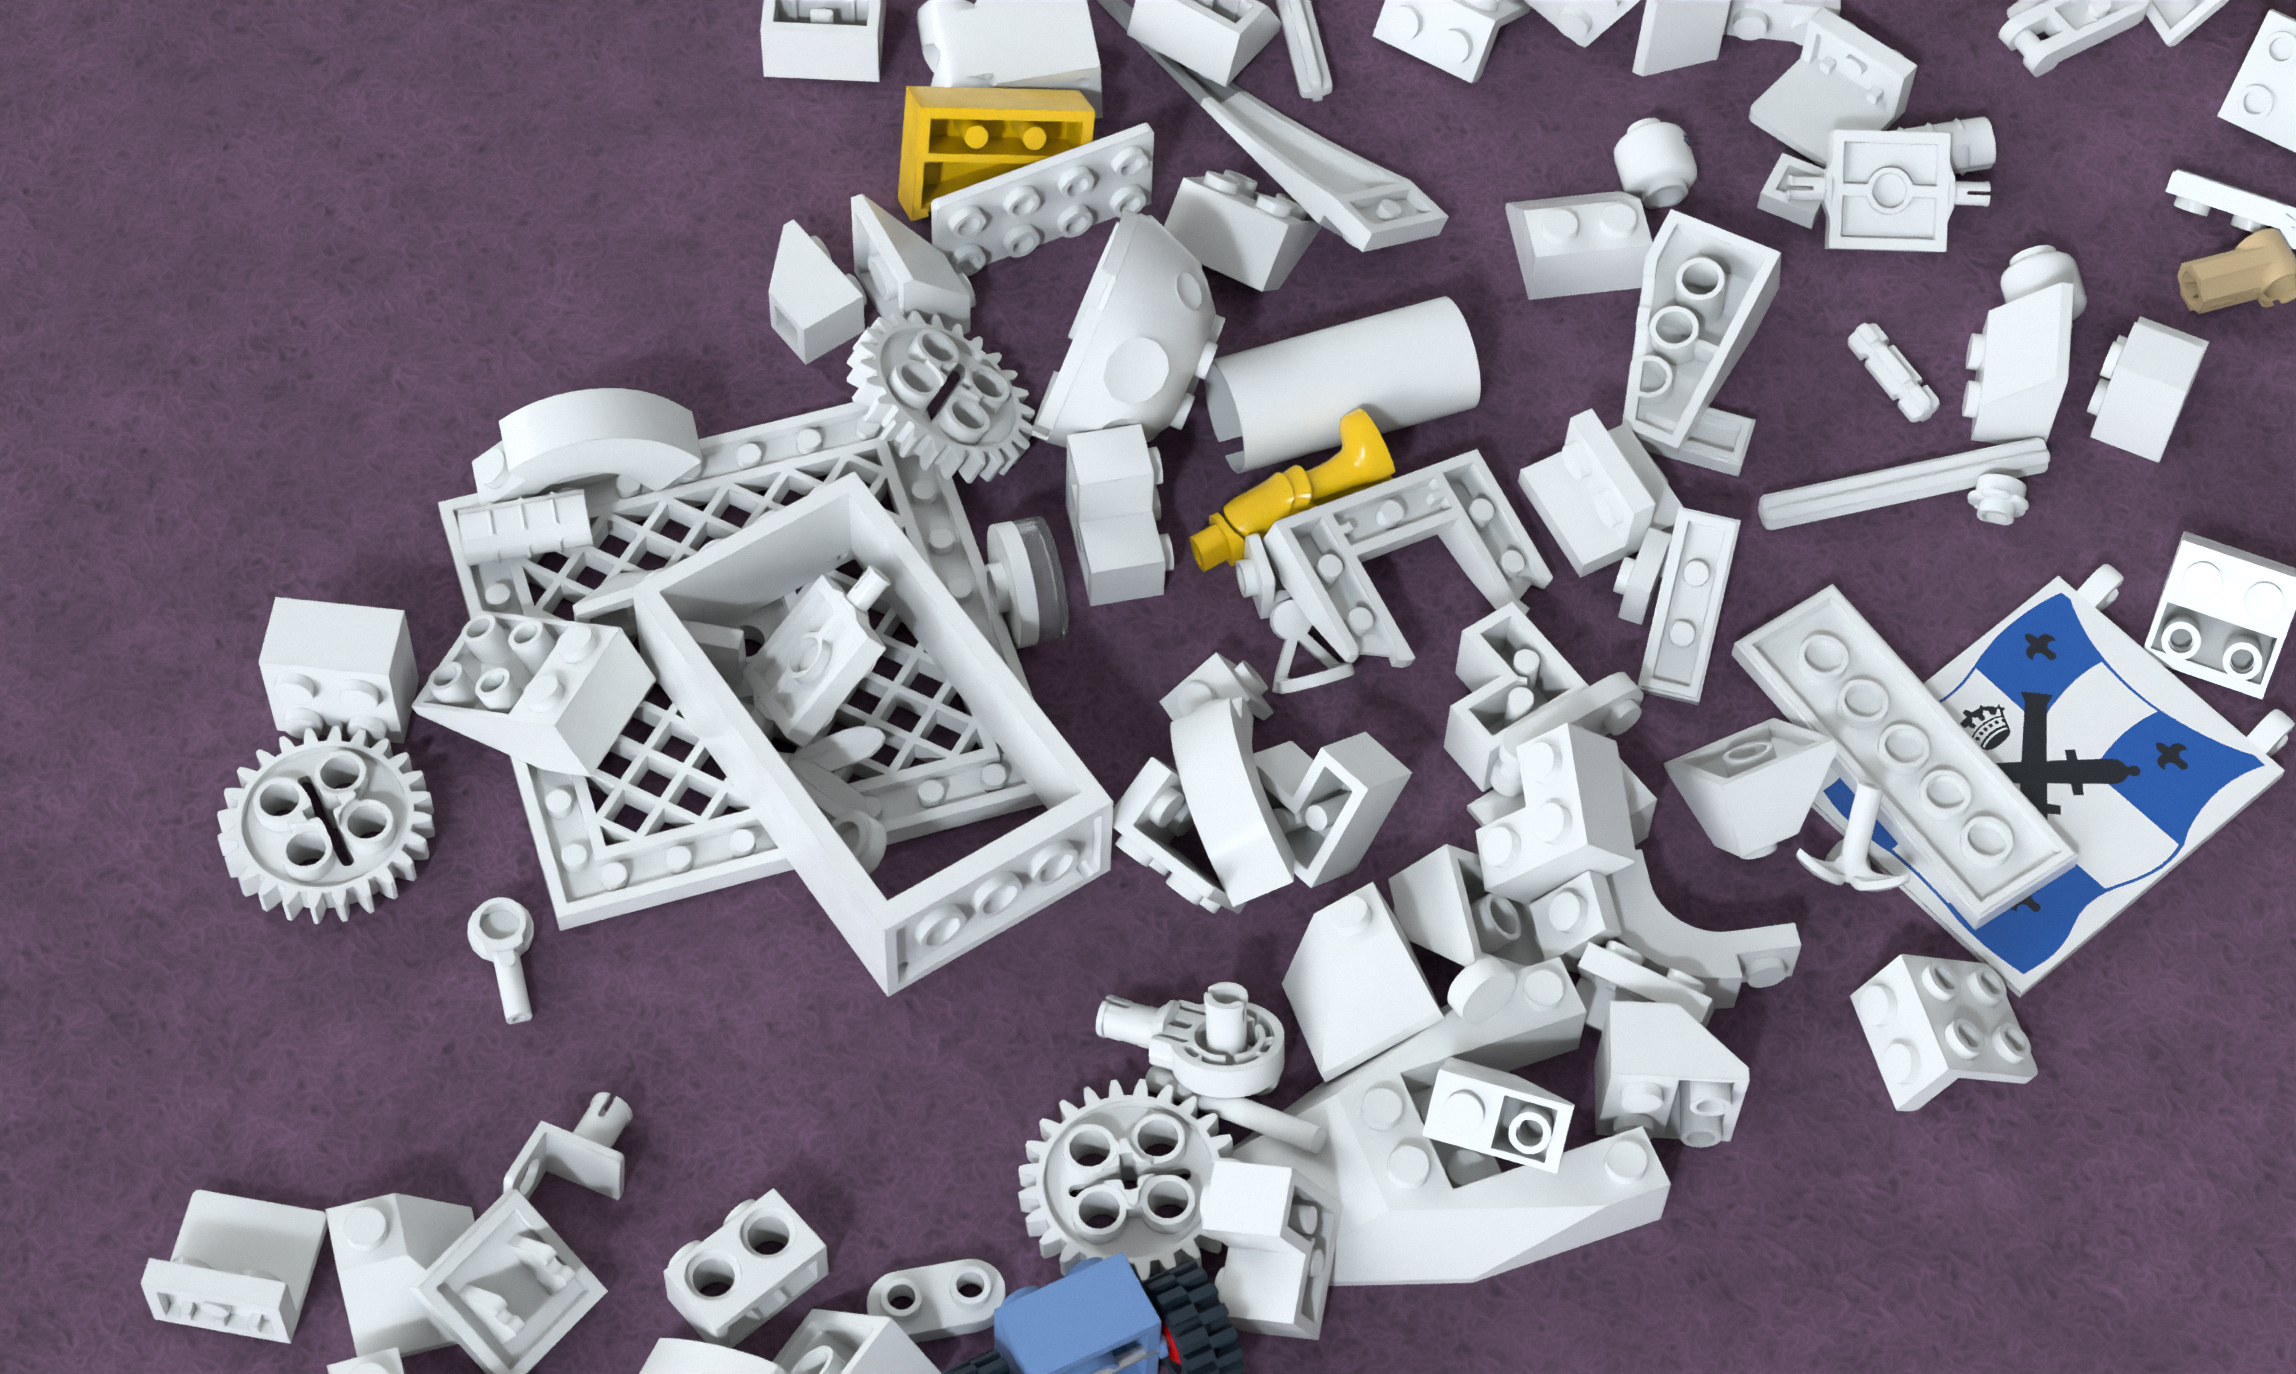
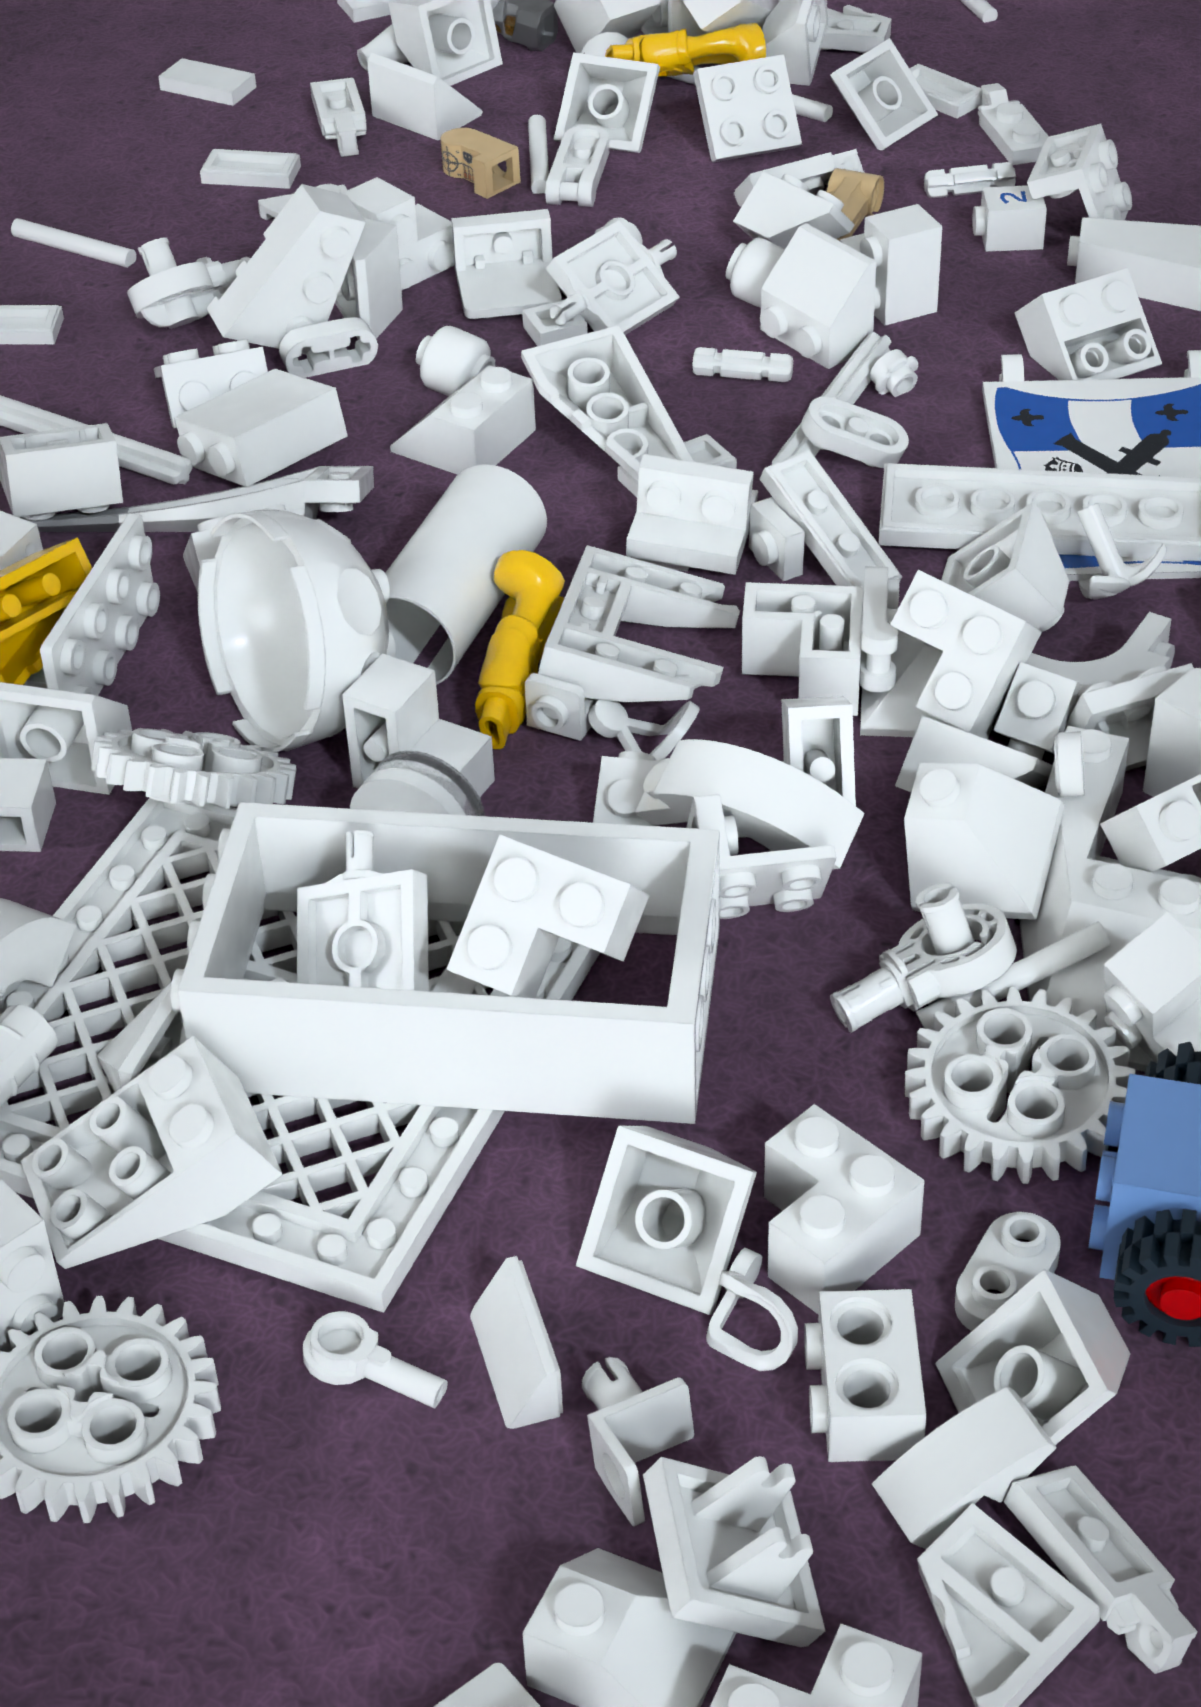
camera: 45 degrees left, 15 degrees down
(594, 1039) = (517, 1348): none -> white slope
(771, 1130) = (739, 1284): none -> white piece
(784, 1035) = (666, 1216): none -> white slope
(883, 1160) = (840, 1206): none -> white brick
(884, 753) = (530, 903): none -> white brick
(1408, 100) = (261, 427): none -> white brick
(1583, 56) = (328, 347): none -> white beam
(1861, 529) = (854, 432): none -> white plate
(2146, 246) = (782, 205): none -> white slope

